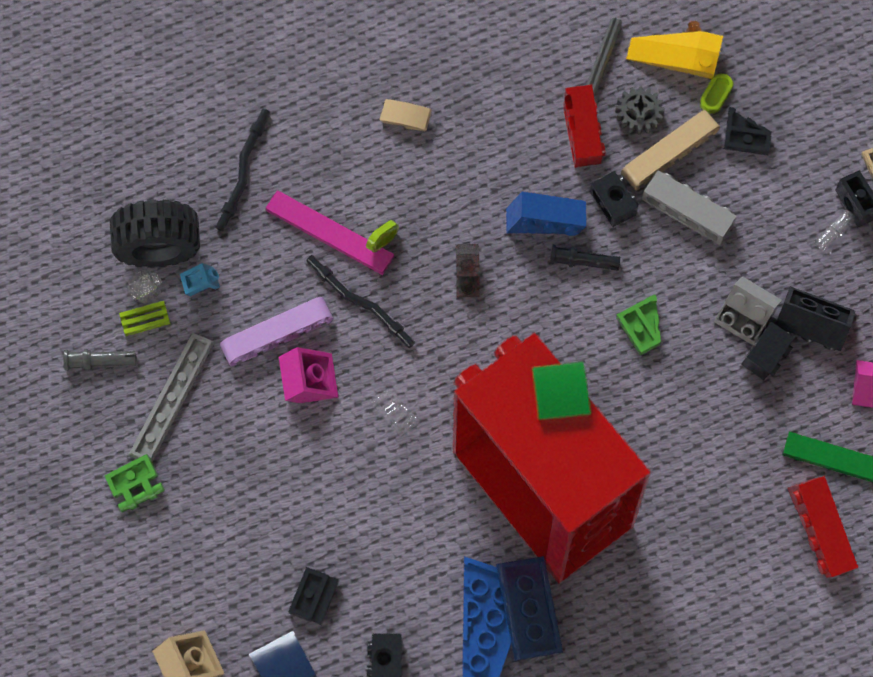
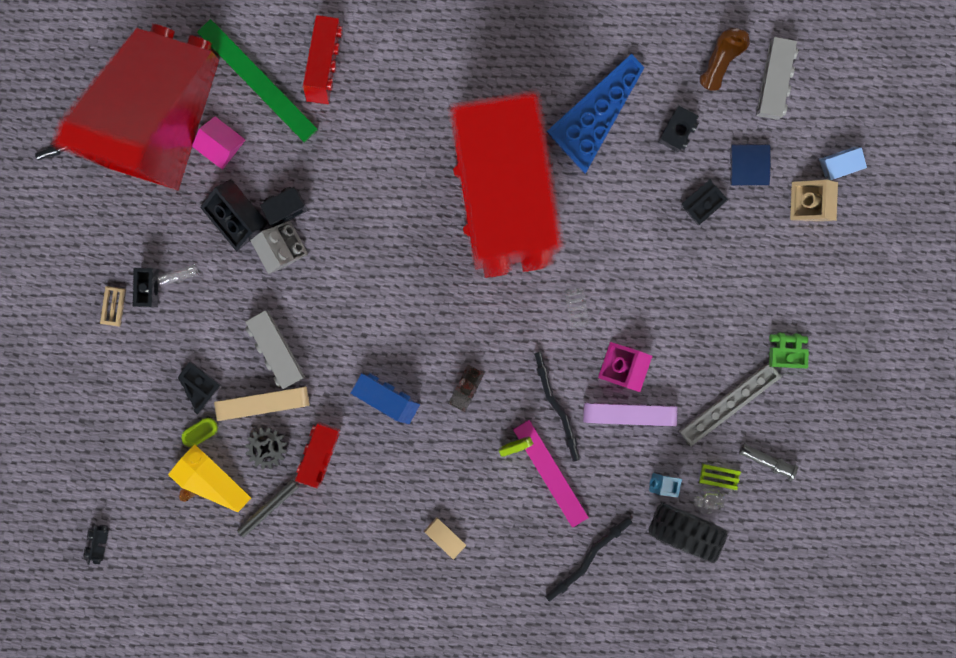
camera: 150 degrees left, 20 degrees up
(529, 608) = (562, 109): dark blue tile -> none
(561, 390) = (483, 201): green slope -> none
(573, 257) = (382, 357): black pin -> none
(615, 211) = (331, 375): black brick -> none
(642, 324) = (362, 278): bright green wing -> none

